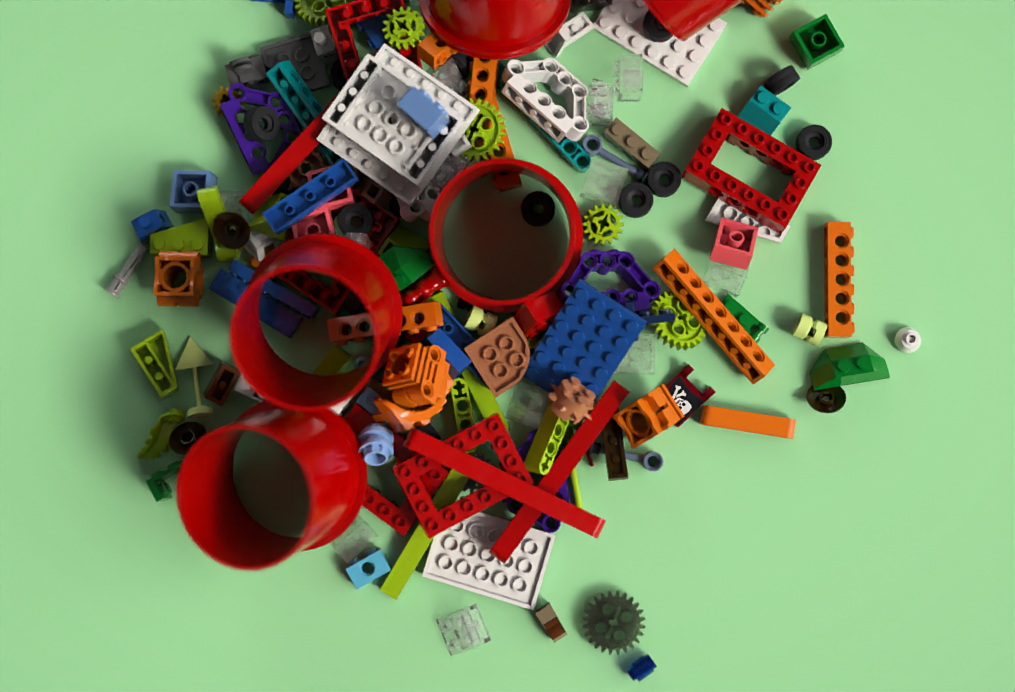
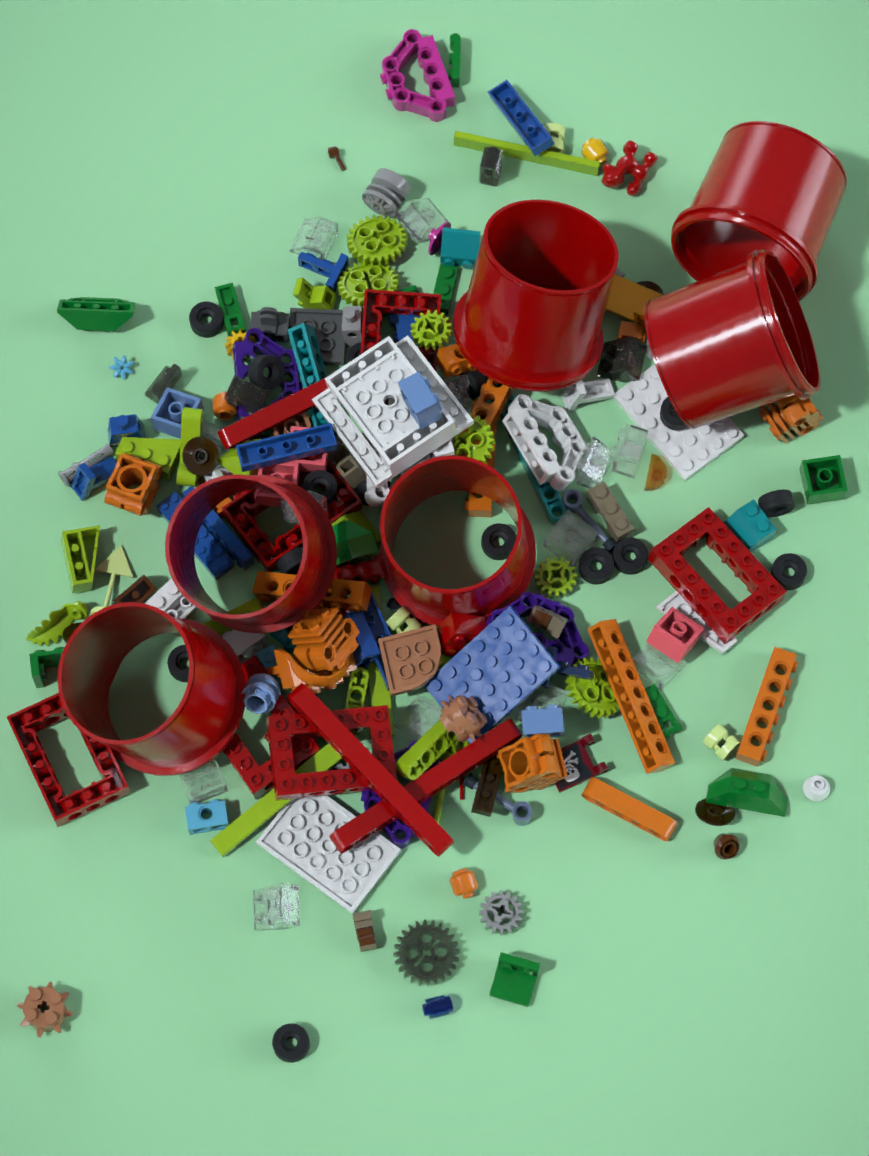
camera: 15 degrees right, 15 degrees down
(77, 118) = (96, 313): none -> green wedge
(122, 166) = (124, 370): none -> medium azure plant
(139, 281) = (92, 477): none -> blue bracket
(169, 161) = (167, 378): none -> clear smoke bracket
(175, 81) = (206, 309): none -> black tyre
(202, 67) = (230, 308): none -> green plate
(204, 584) = (65, 808): none -> red brick
(234, 167) = (222, 409): none -> orange head
(251, 154) = (245, 395): none -> clear smoke brick
(277, 29) = (313, 296): none -> lime brick
(614, 274) = (547, 620): none -> dark tan leg
(623, 545) = (463, 883): none -> orange head
(646, 377) = (543, 721): none -> medium blue brick
(659, 90) = (656, 473): none -> clear orange plate
(667, 552) = (508, 915): none -> light grey gear
(701, 618) = (514, 979): none -> green bracket
(847, 425) = (726, 846): none -> reddish brown cone

